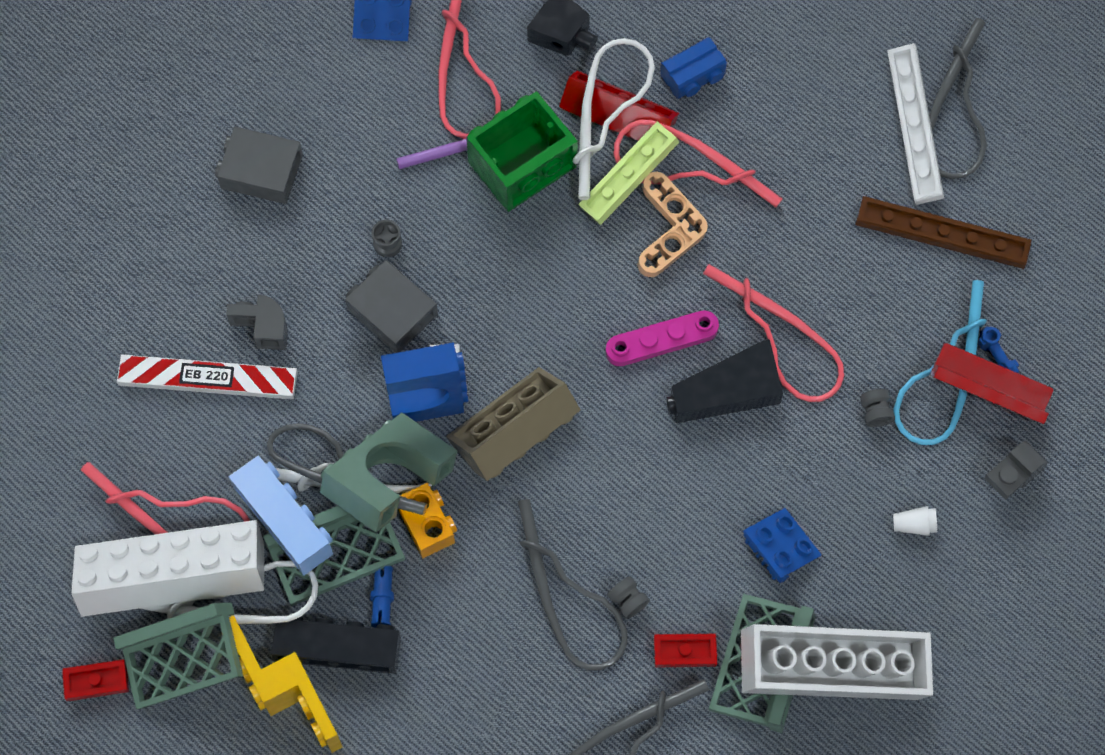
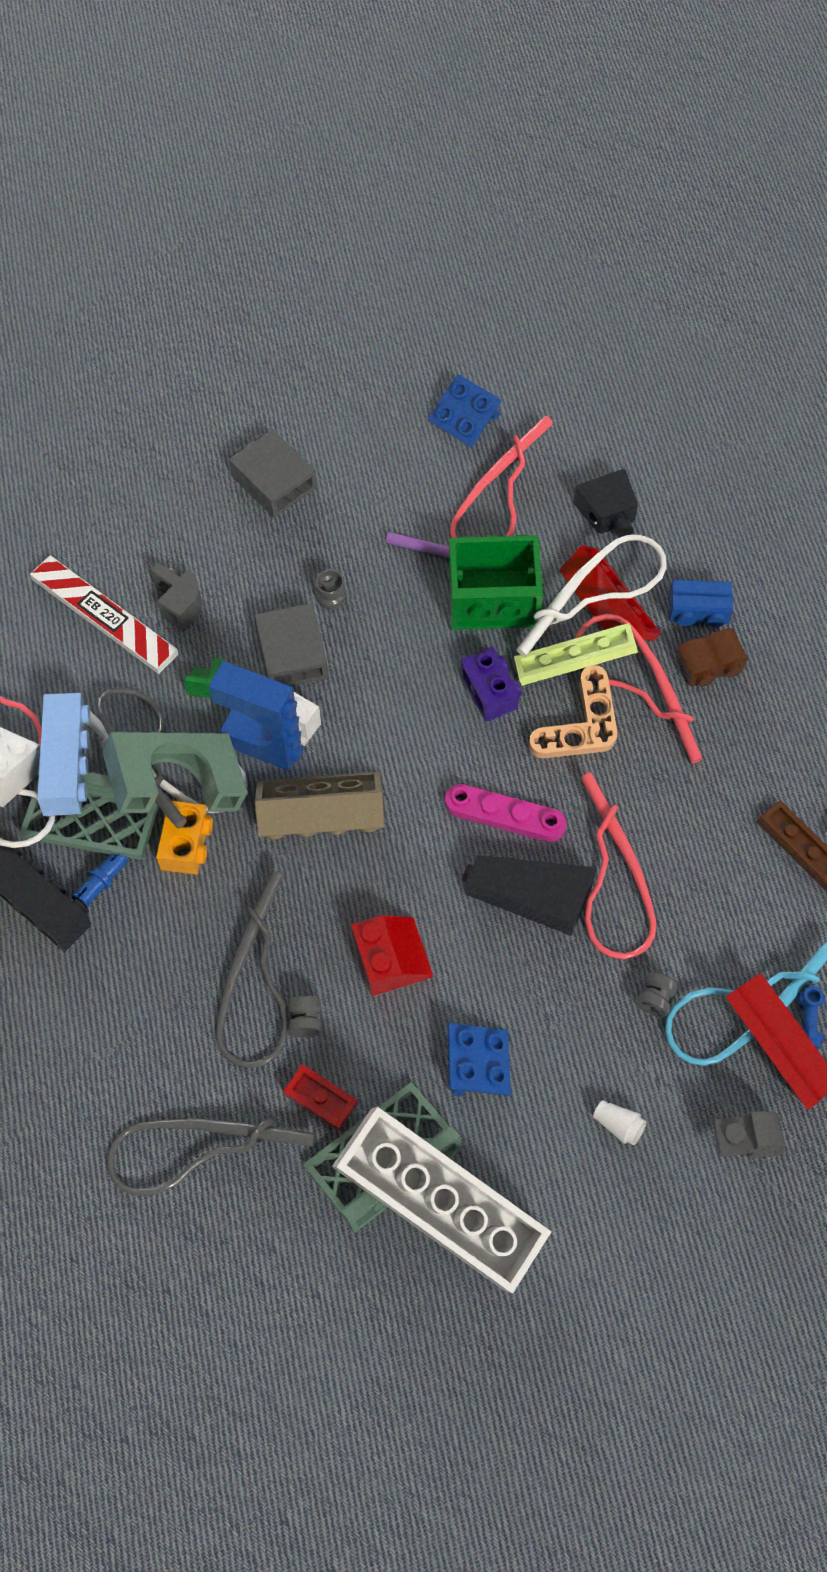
camera: 35 degrees right, 5 degrees down
(342, 379) = (200, 679): none -> green panel
(576, 239) = (490, 683): none -> dark purple brick
(656, 507) = (390, 953): none -> red slope
(734, 110) = (711, 657): none -> reddish brown brick

